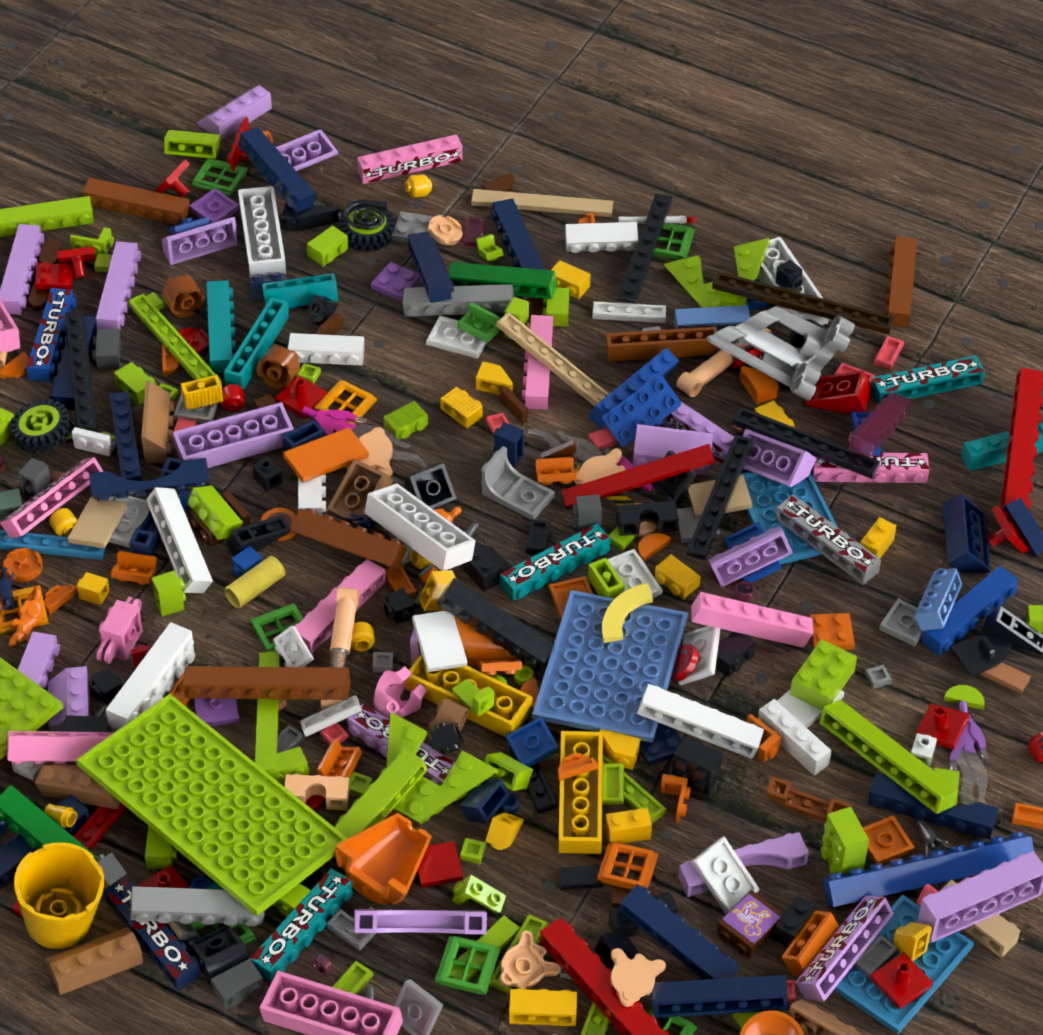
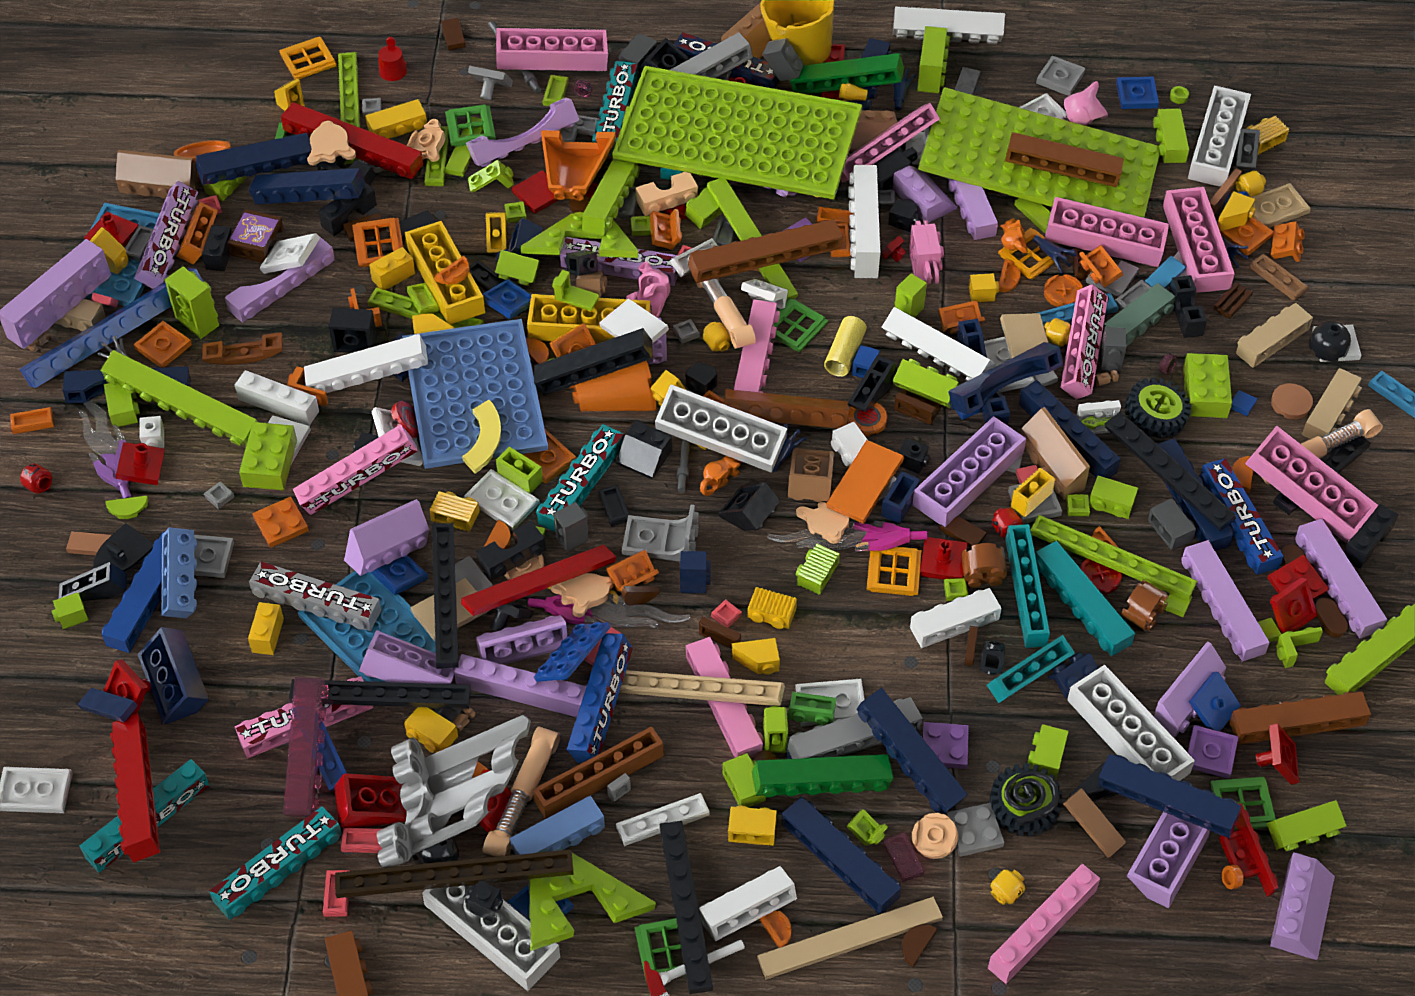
camera: 155 degrees right, 5 degrees up
(332, 193) = (1094, 822): none -> medium nougat tile

